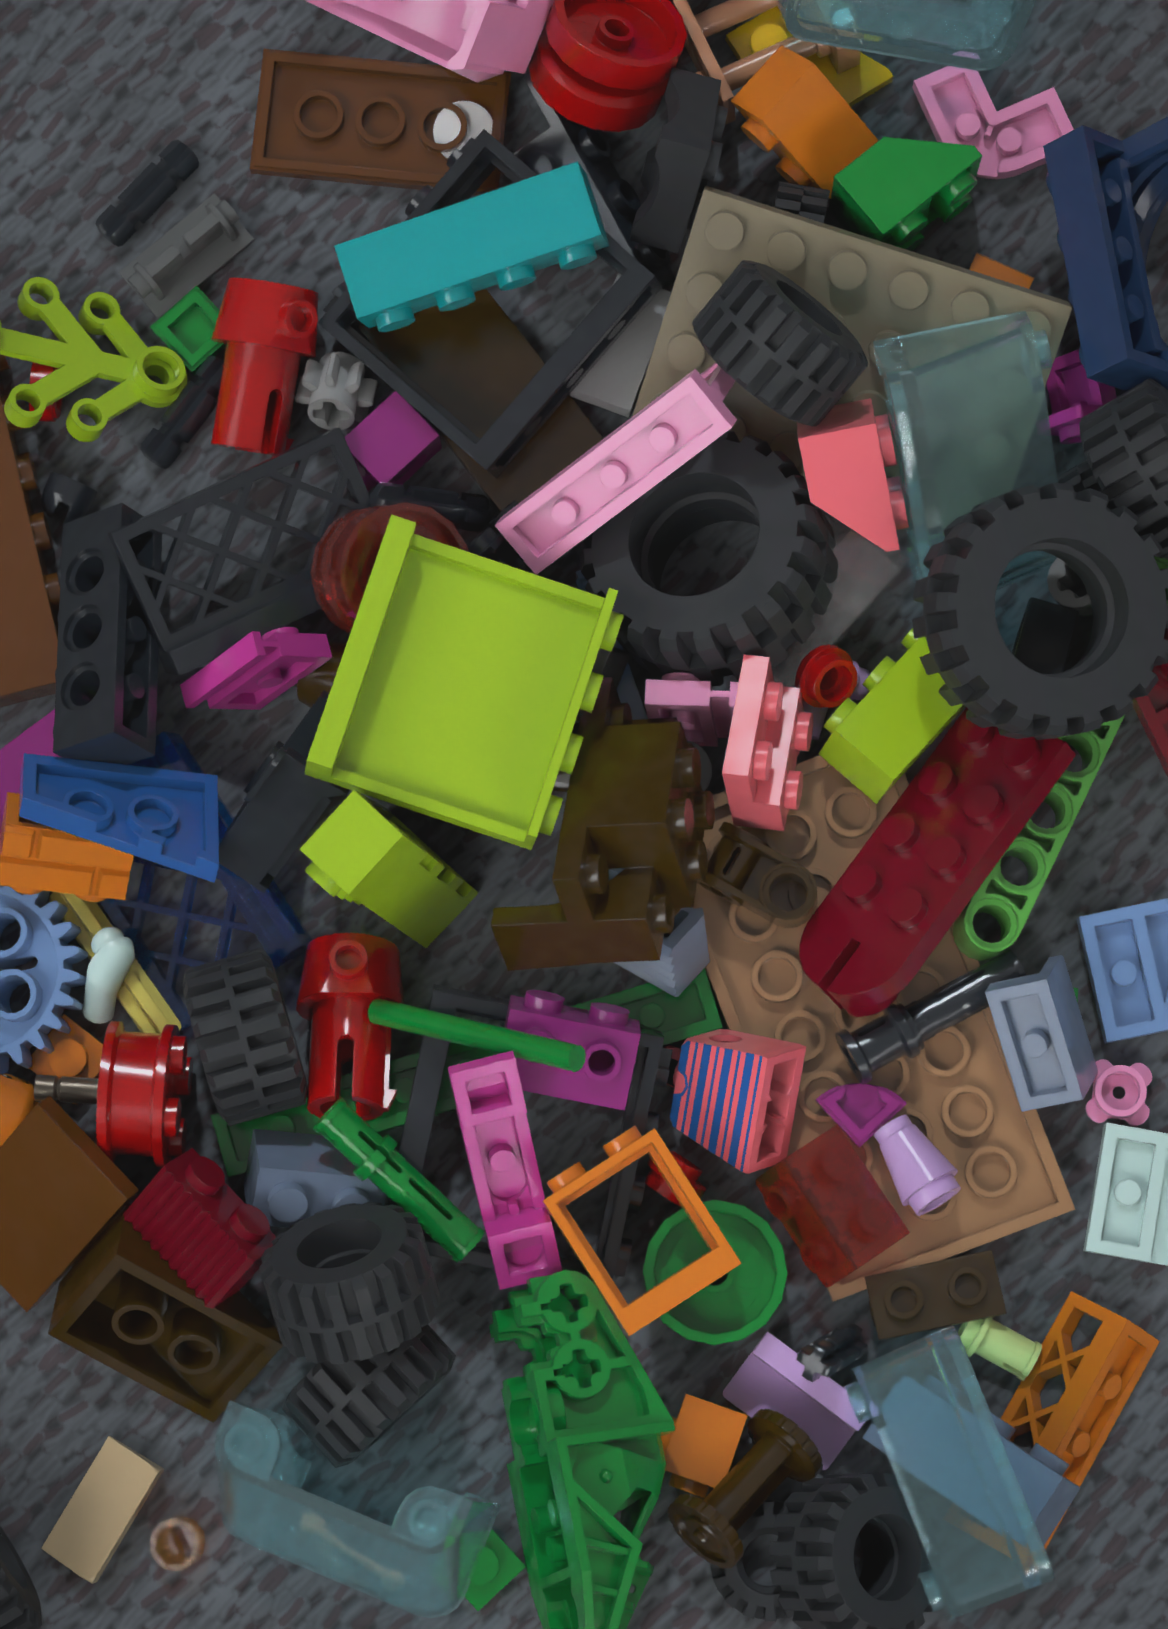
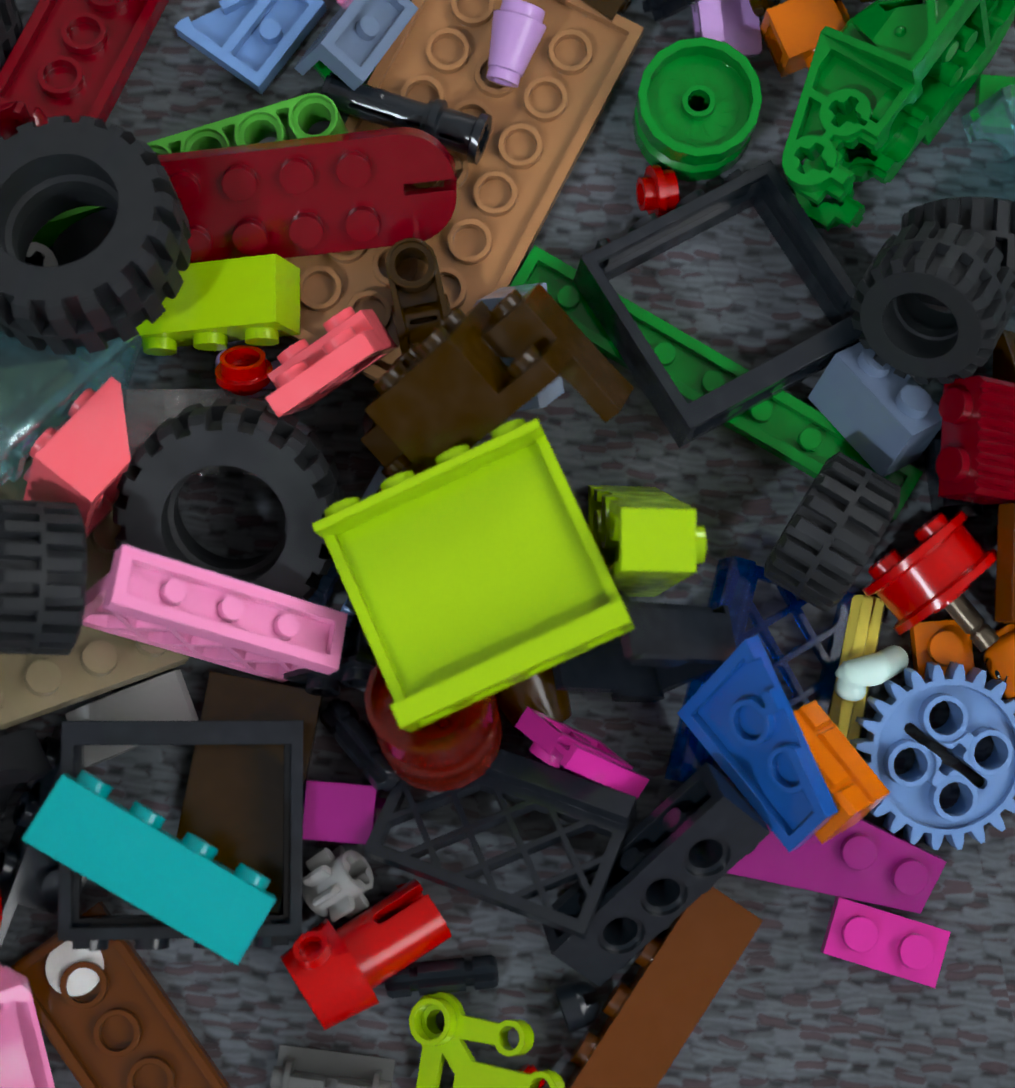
camera: 140 degrees left, 0 degrees up
(189, 329) = (382, 1029): green tile -> none
(335, 992) = (741, 489): red piece -> none
(398, 1179) = (833, 362): green pin -> none
(477, 1034) = (698, 358): green bar -> none
(504, 1168) = (767, 271): dark pink slope -> none
(604, 1033) = (650, 301): magenta brick -> none
(674, 1289) = (735, 101): orange window -> none
(701, 710) = (341, 436): bright pink plate -> none
(737, 1095) = (571, 191): coral torso -> none
(831, 1206) = (588, 70): clear red bracket -> none
(860, 1109) = (509, 110): magenta tile -> none

